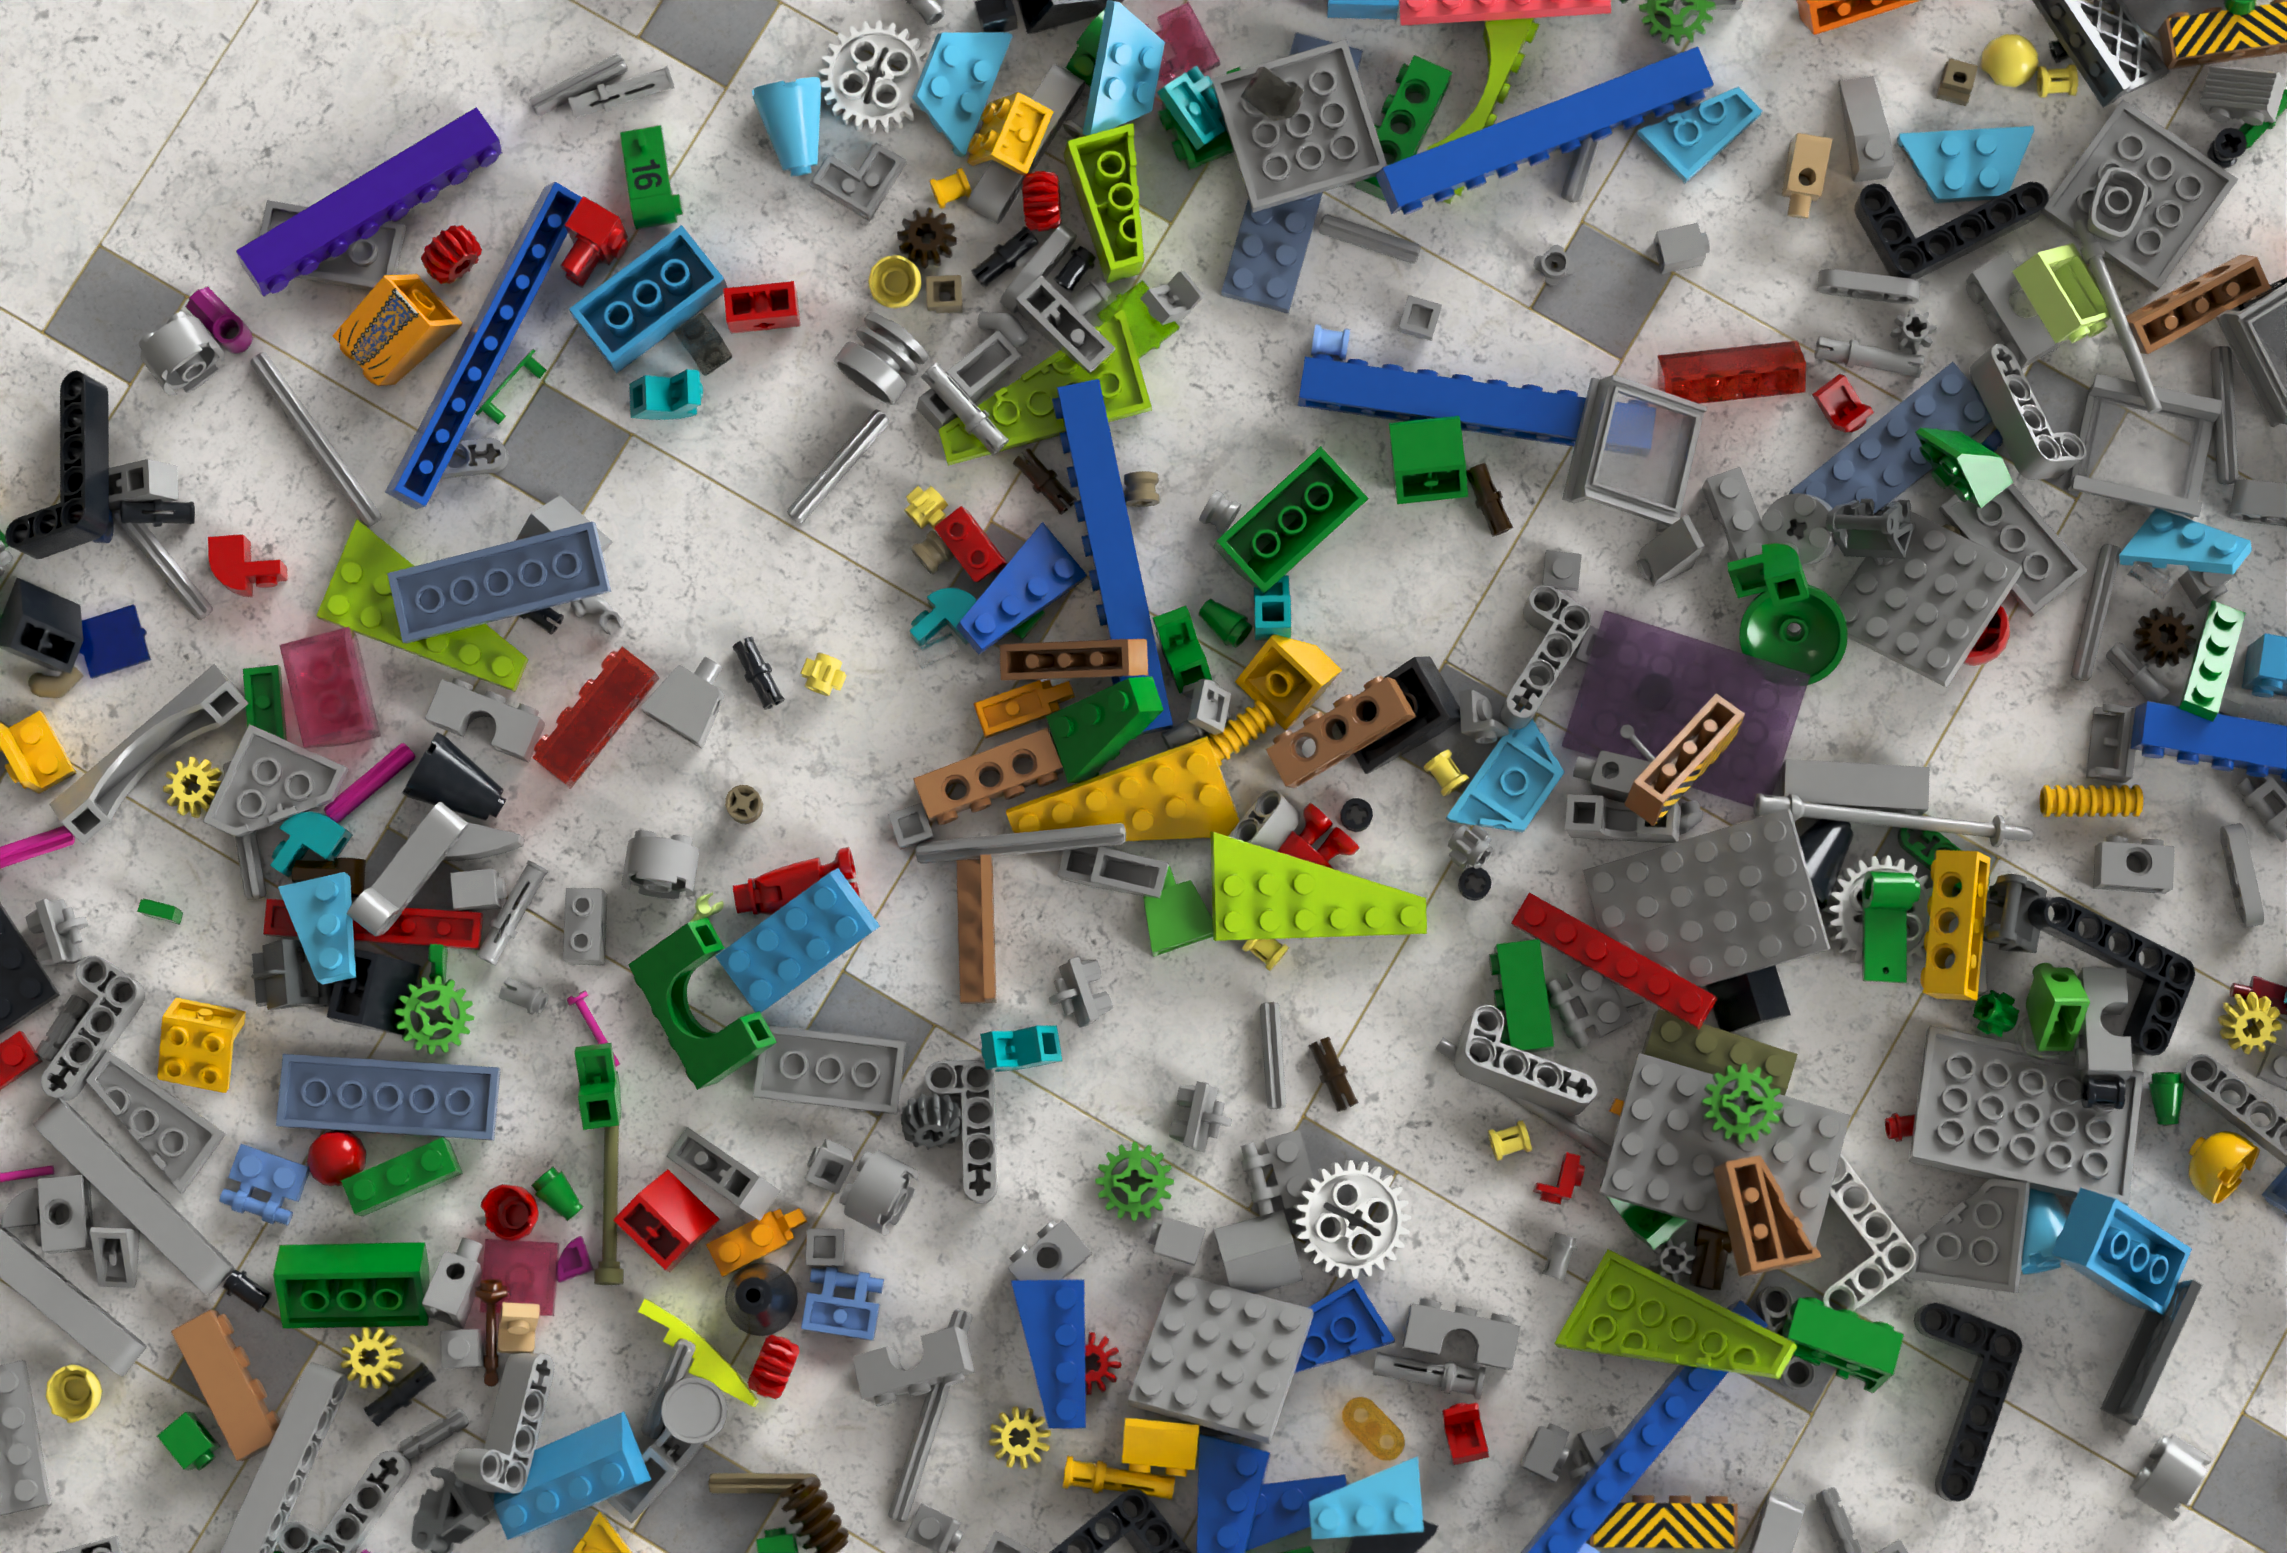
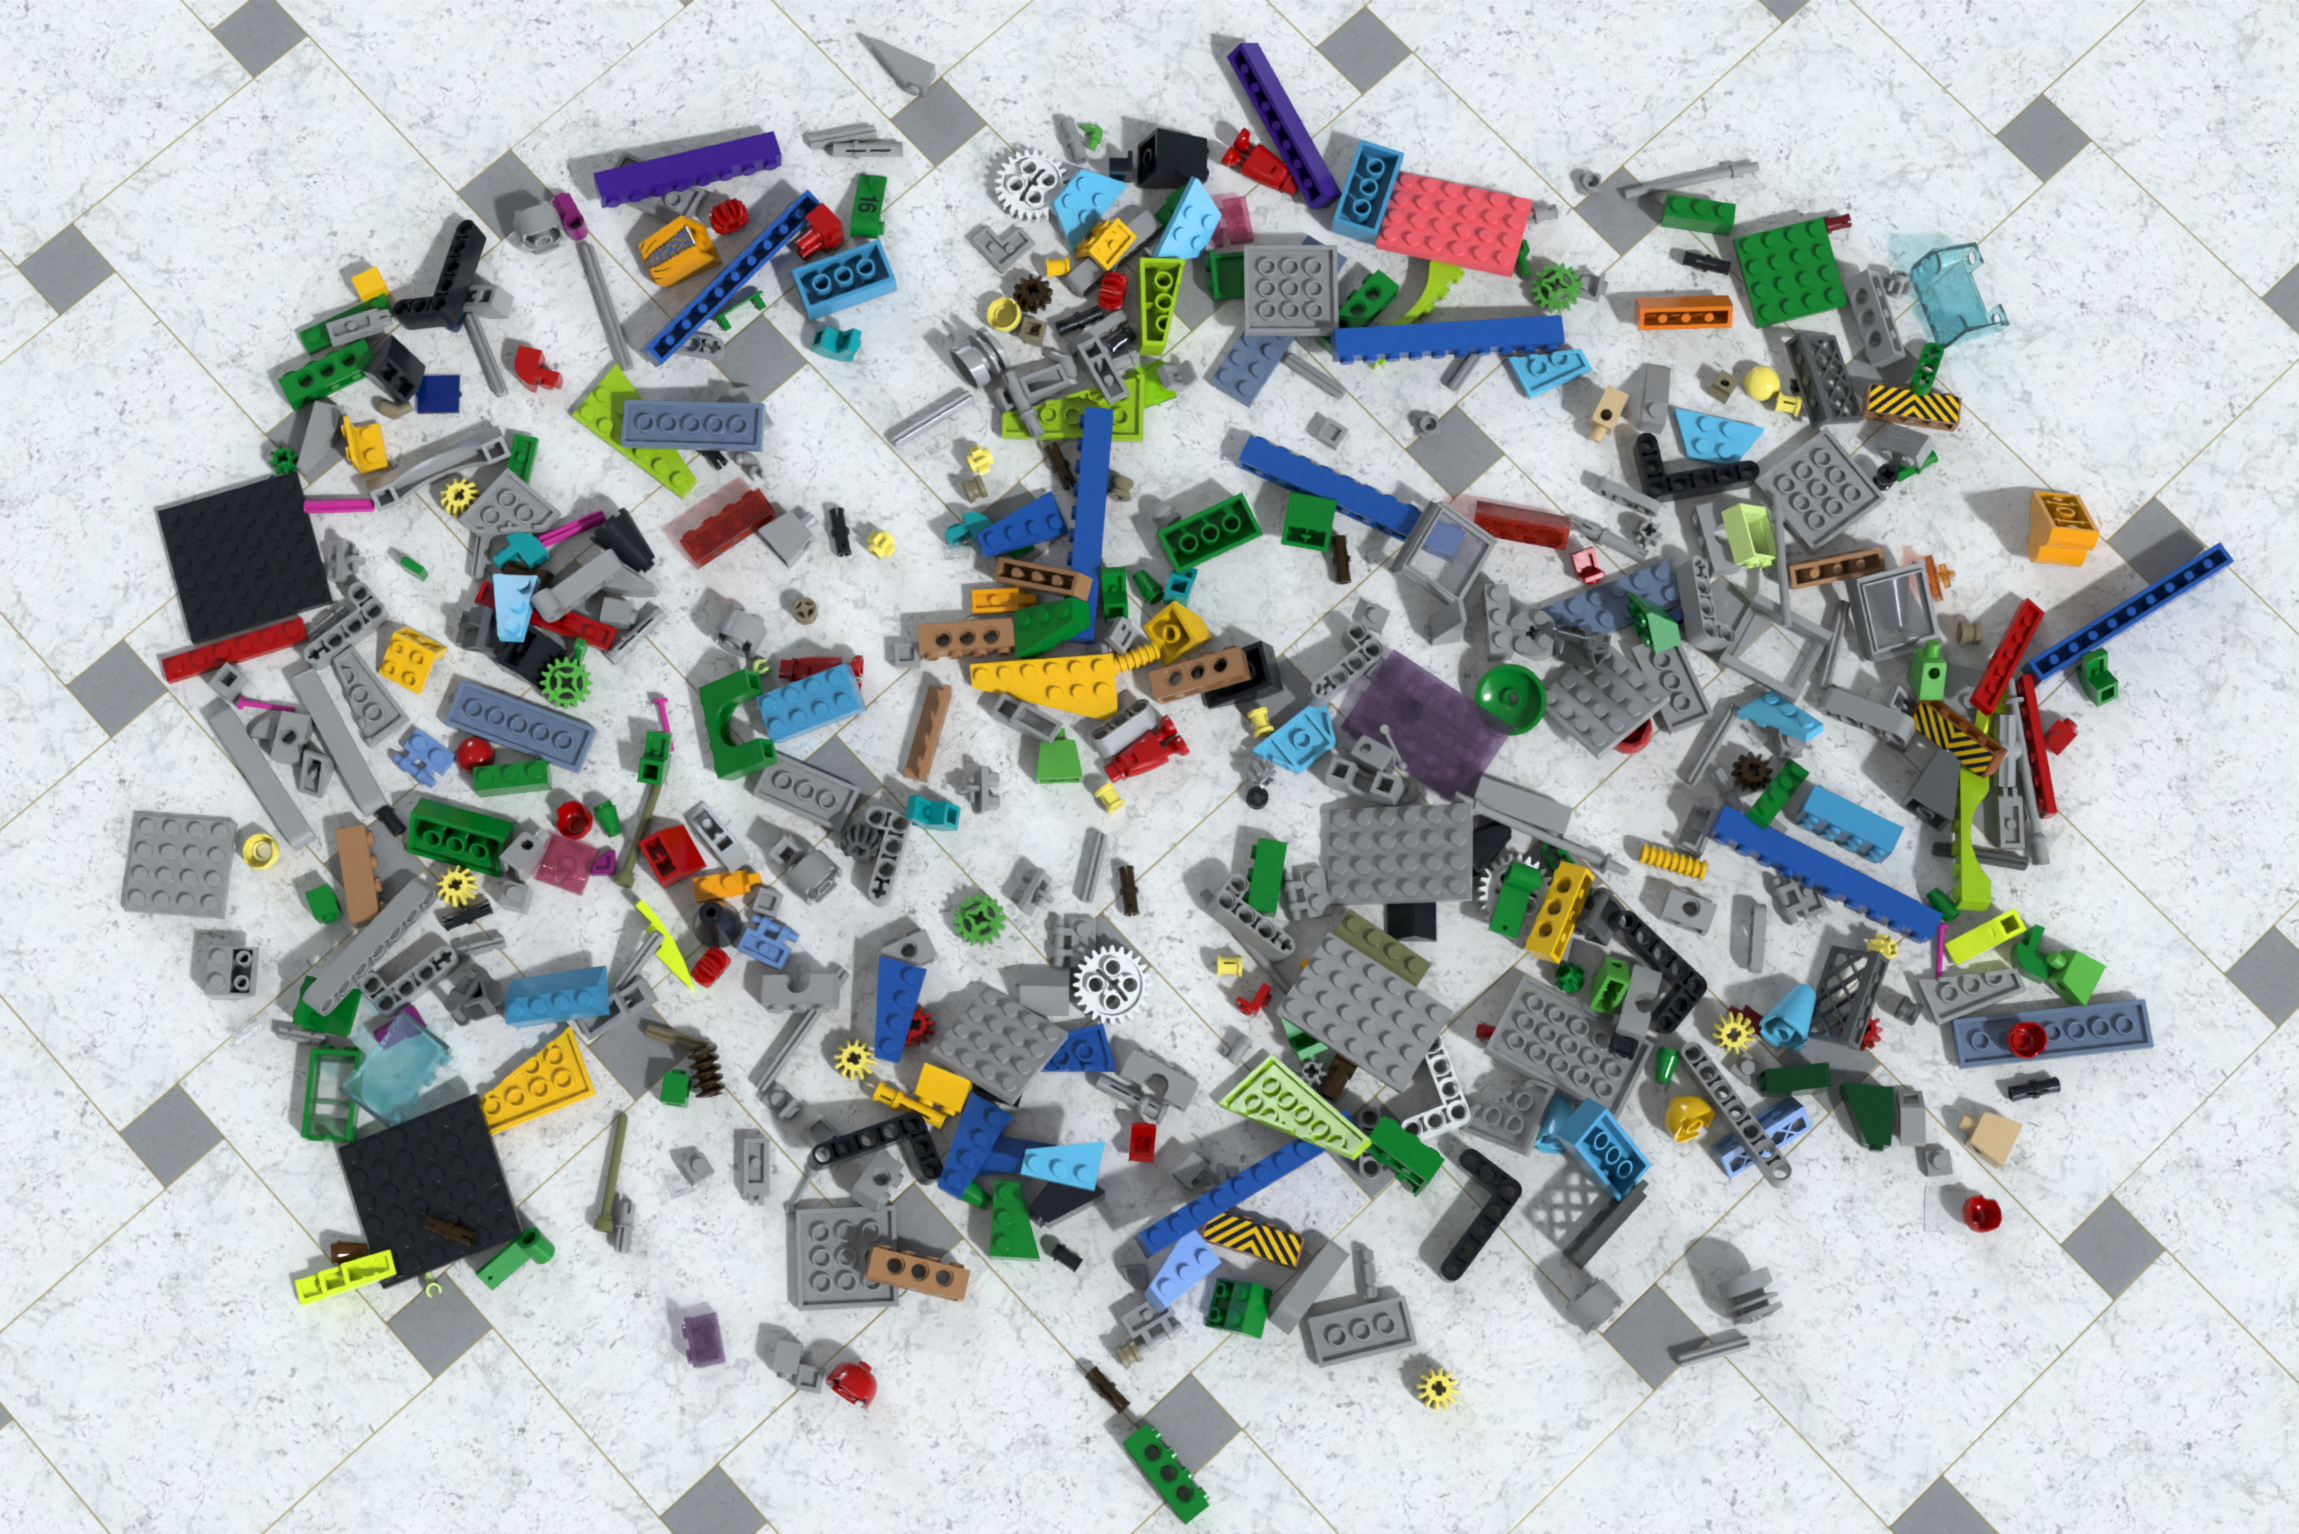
camera: 10 degrees right, 5 degrees down
(132, 512) = (506, 326): black pin -> none
(330, 689) = (565, 462): clear pink slope -> none
(458, 706) = (643, 496): light grey arch -> none
(491, 1292) = (546, 867): reddish brown piece -> none
(513, 1429) = (532, 956): light grey beam -> none
(517, 1327) = (555, 894): tan bracket -> none
(532, 999) = (627, 689): light grey pin -> none
(585, 926) = (679, 656): light grey brick -> none
(694, 1410) = (651, 978): light grey piece -> none
(703, 344) = (870, 319): clear smoke bracket -> none
(761, 307) = (914, 305): red brick -> none
(792, 121) = (970, 196): medium azure cone -> none
(970, 544) = (999, 489): red bracket -> none
(1021, 843) = (973, 685): light grey axle -> none
(1177, 1240) = (995, 965): light grey brick -> none
(1194, 106) = (1227, 260): teal plate -> none
(1272, 95) = (1278, 265): clear smoke bracket -> none
(1282, 897) = (1132, 768): lime wing -> none
(1330, 342) = (1270, 432): light blue bush -> none
(1350, 824) = (1200, 728): black bush -> none
(1373, 1428) = (1084, 1122): clear yellow plate -> none
(1476, 718) = (1291, 692): light grey bracket -> none
(1614, 961) = (1331, 871): red plate -> none
(1681, 248) = (1513, 438): light grey brick -> none
(1684, 759) = (1414, 753): medium nougat brick -> none
(1741, 1120) = (1393, 984): bright green gear -> none
(1759, 1220) = (1372, 1056): medium nougat wedge -> none
(1773, 571) = (1508, 653): green brick -> none
(2116, 204) = (1801, 489): light grey piece -> none

